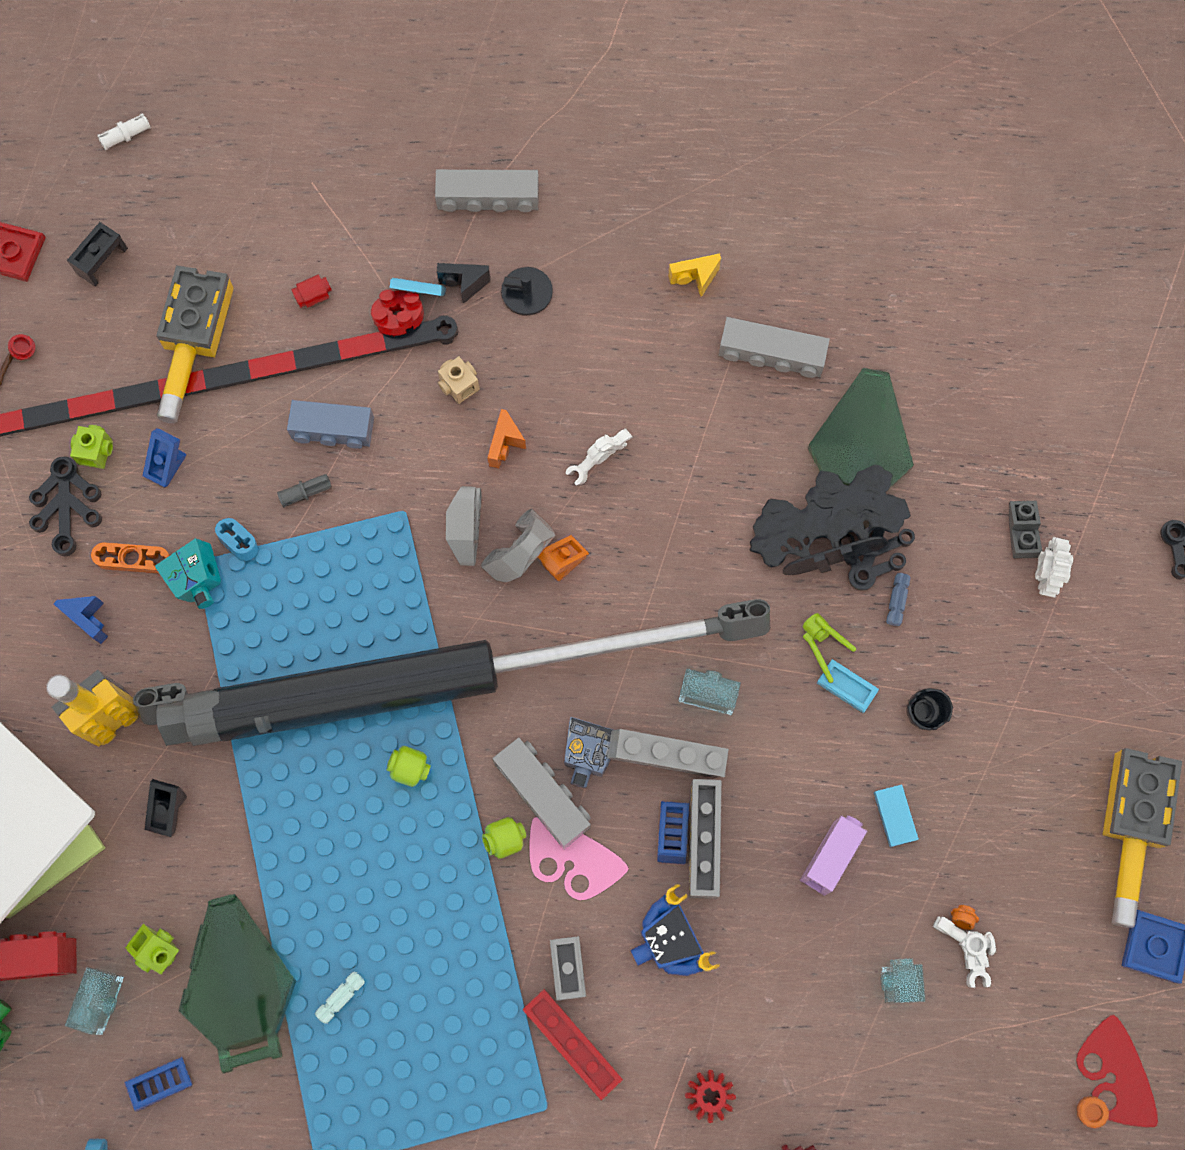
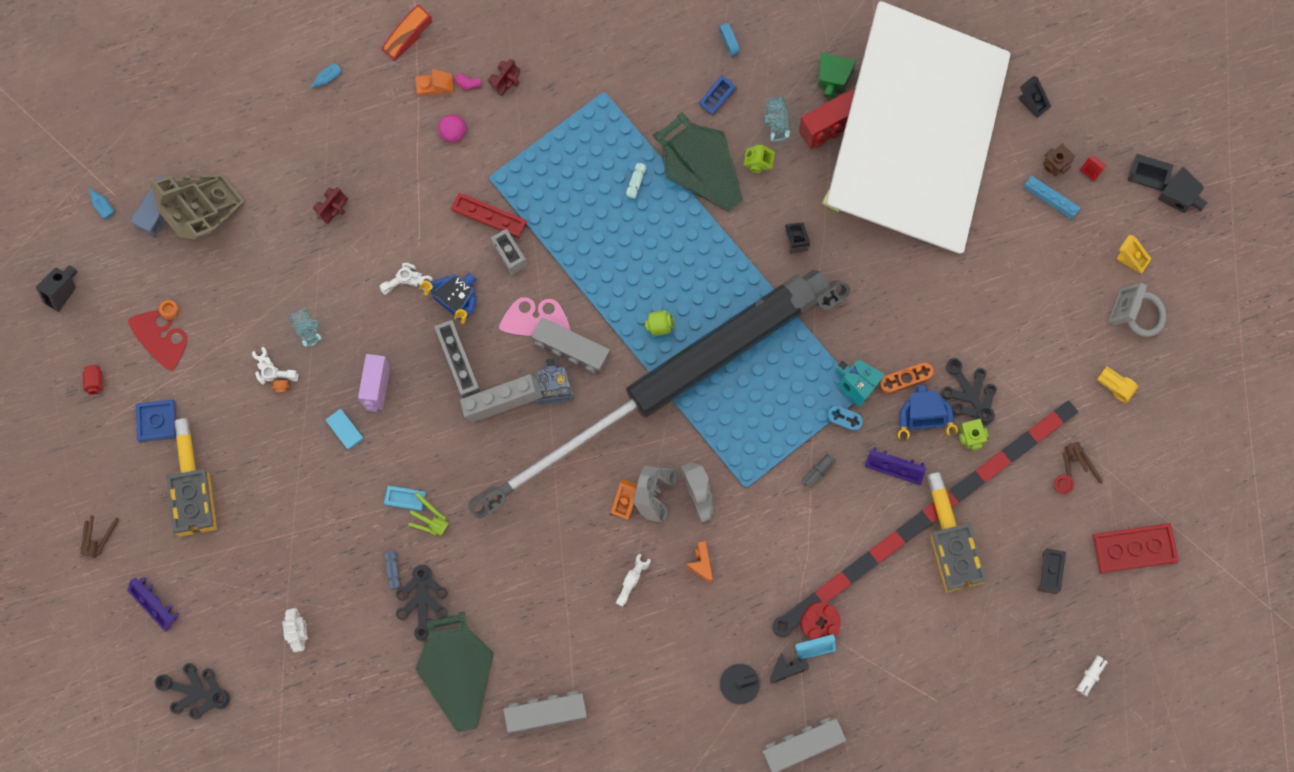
camera: 160 degrees right, 0 degrees up
(81, 612) = (918, 326): blue slope -> none
(93, 707) = (866, 266): yellow piece -> none
(132, 500) = (926, 410): none -> blue torso
(162, 457) = (922, 449): blue slope -> none
(208, 453) = (895, 466): none -> dark purple plate
(311, 291) = (888, 611): red brick -> none
(330, 424) = (824, 521): sand blue brick -> none
(458, 379) = (753, 583): tan brick -> none
(503, 837) = (581, 310): lime head -> none
(673, 856) = (469, 347): blue slope -> none
(701, 269) = (619, 751): yellow slope -> none
(709, 691) = (492, 452): clear light blue brick -> none
(713, 1086) = (396, 215): red gear -> none
(727, 1003) = (405, 276): none -> white piece
(830, 514) = (457, 601): black plant -> none
(929, 709) = (346, 502): black hair -> none
(1024, 527) = (323, 657): dark grey slope -> none

